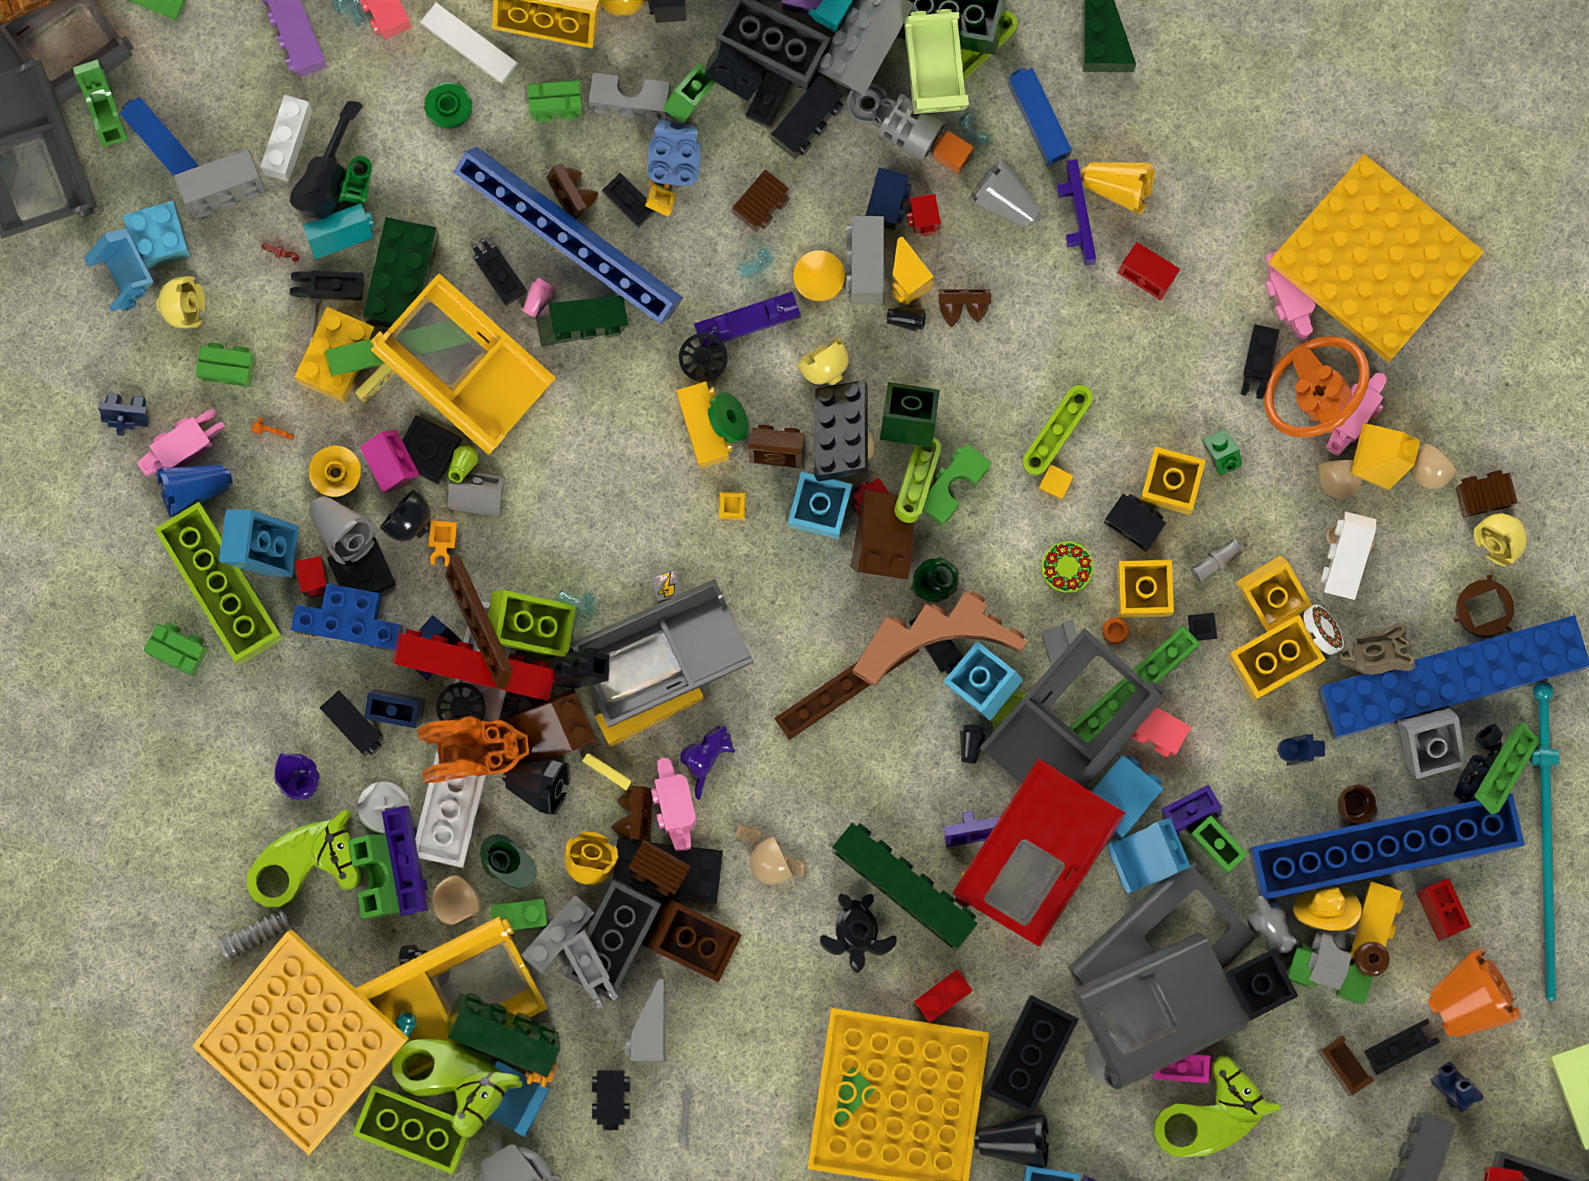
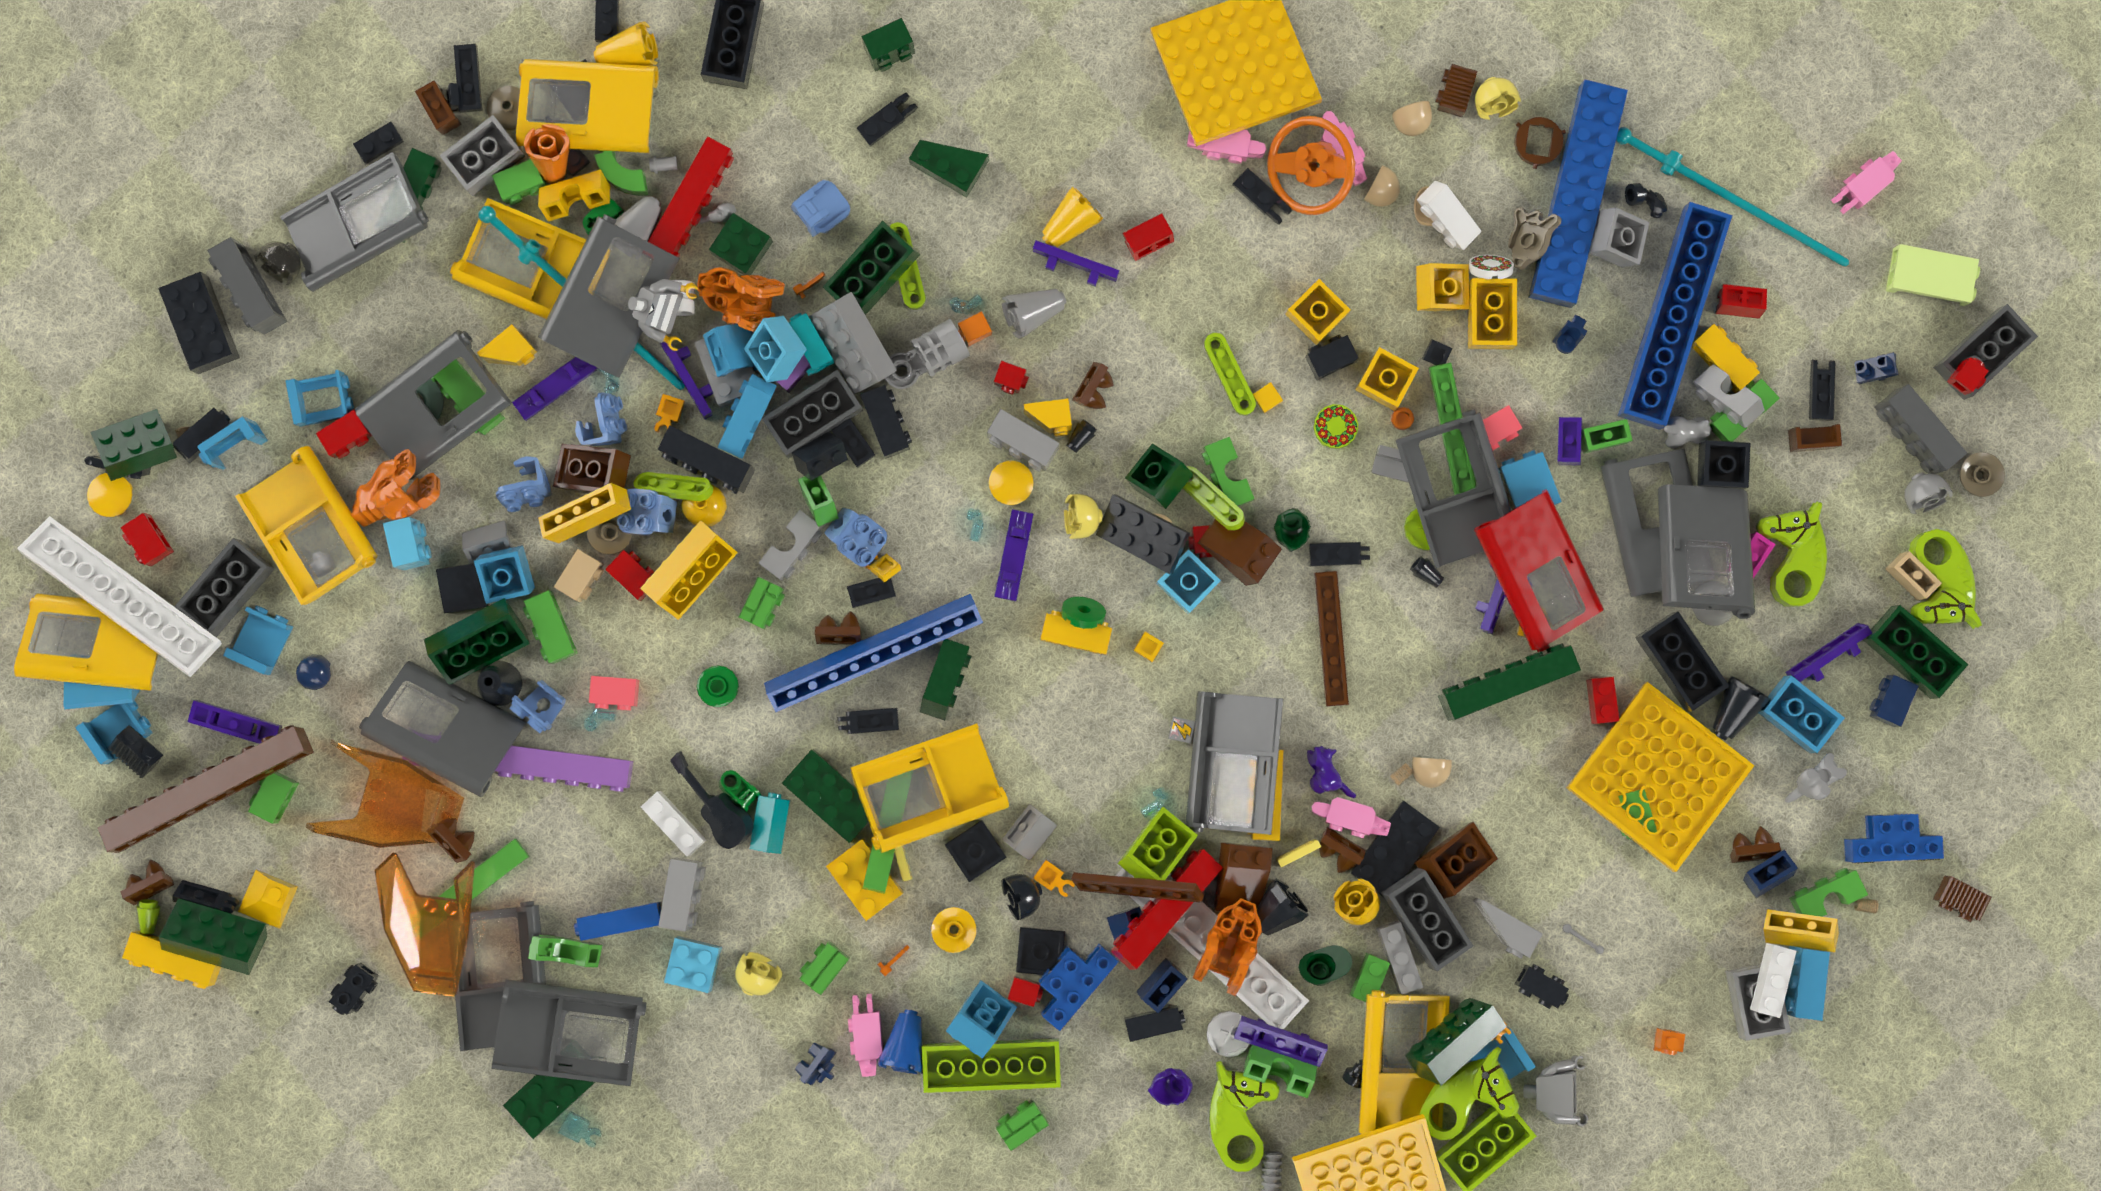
camera: 65 degrees left, 5 degrees up
(125, 266) = (705, 1002): dark azure panel -> none
(280, 252) = (758, 877): clear red hand -> none
(315, 302) = (811, 871): light grey hinge -> none
(329, 285) = (807, 854): black hinge -> none
(342, 529) = (1002, 950): light grey cone -> none
(389, 461) = (970, 884): dark pink panel -> none
(406, 1023) = (1404, 1108): teal pin -> none
(455, 900) = (1332, 1019): tan helmet -> none
(460, 706) = (1189, 936): black wheel -> none
(463, 461) = (1002, 829): lime cone -> none
(469, 43) = (678, 643): white tile -> none
(538, 296) = (905, 699): bright pink cone -> none
(582, 669) = (1216, 830): black brick -> none
(588, 966) = (1441, 950): light grey hinge -> none
(659, 868) = (1394, 855): reddish brown brick -> none
(703, 357) = (1024, 604): black wheel -> none
(761, 201) = (930, 493): reddish brown brick -> none
(776, 447) = (1125, 588): reddish brown slope -> none
(803, 865) = (1447, 747): tan piece -> none
(857, 932) = (1521, 736): black animal -> none
(888, 195) = (982, 397): dark blue brick -> none
(935, 62) = (905, 302): yellowish green panel -> none
(966, 621) = (1324, 586): nougat arch -> none
(983, 680) = (1389, 537): medium azure brick -> none
(1039, 116) = (983, 249): blue brick -> none
(1148, 856) = (1585, 491): dark azure panel -> none
(1216, 560) = (1393, 314): light grey pin -> none
(1223, 451) = (1314, 262): green bracket -> none
(1328, 908) = (1699, 384): yellow hat -> none
(1357, 804) = (1631, 318): reddish brown hair -> none
(1362, 963) = (1751, 380): reddish brown head -> none
(1384, 455) = (1387, 146): yellow slope -> none
(1470, 782) = (1659, 223): black hinge -> none
(1473, 997) = (1820, 317): orange cone -> none
(1507, 768) = (1669, 194): bright green plate -> none

